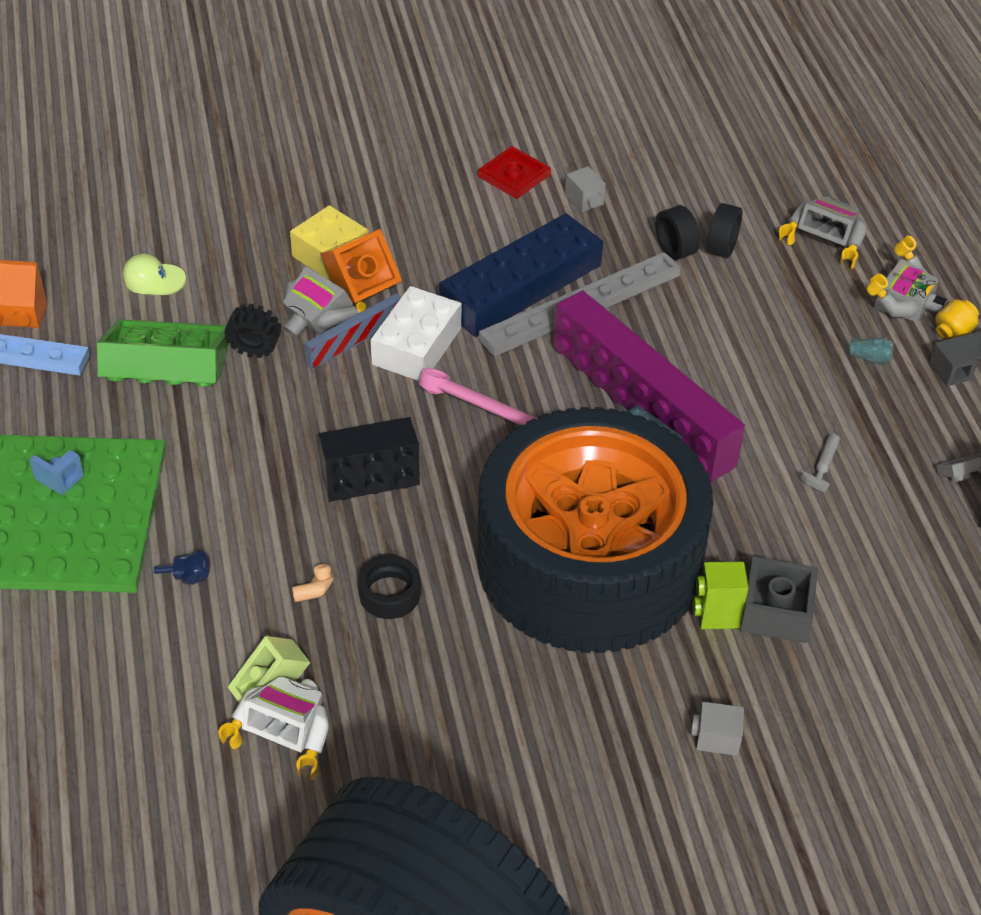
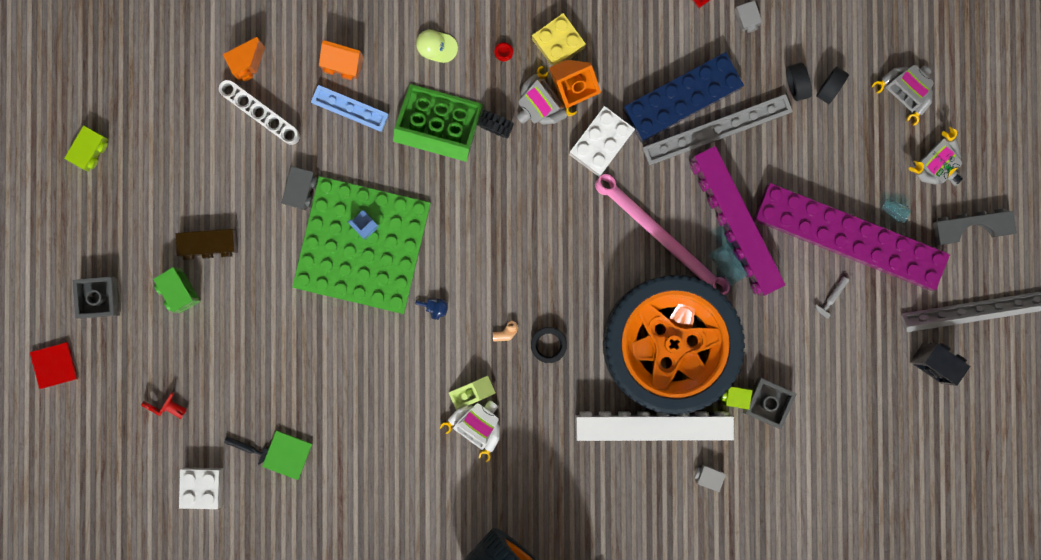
camera: 15 degrees right, 40 degrees up
(253, 267) = (503, 52): none -> red plate
(348, 333) = (562, 129): sand blue tile -> none
(369, 459) = (552, 253): black brick -> none
(596, 659) = (653, 427): none -> white brick
(828, 384) = (851, 237): none -> magenta brick
(956, 319) = (962, 196): yellow head -> none

